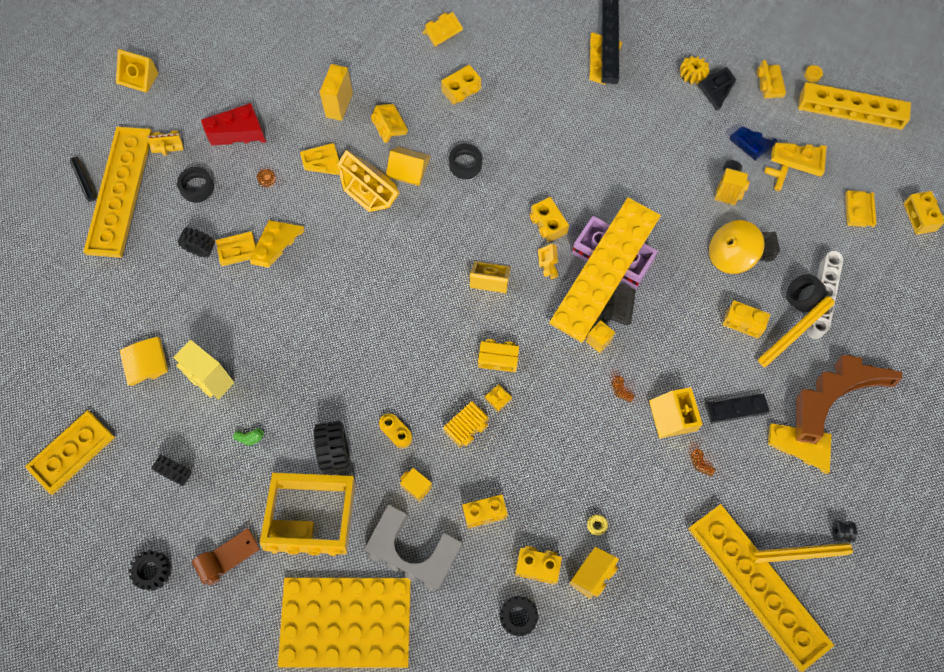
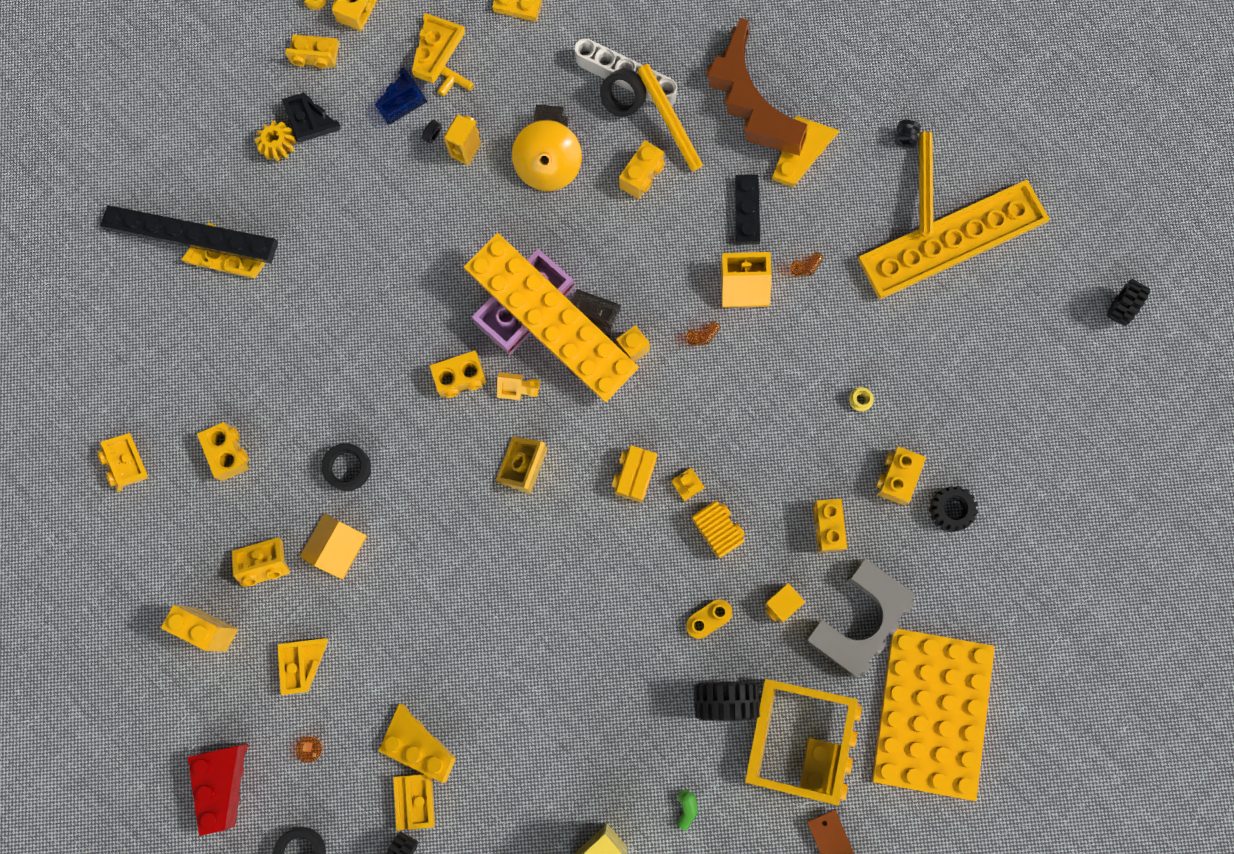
camera: 75 degrees left, 10 degrees up
(366, 183) = (354, 605): yellow wedge -> none
(593, 572) = (920, 413): yellow slope -> none

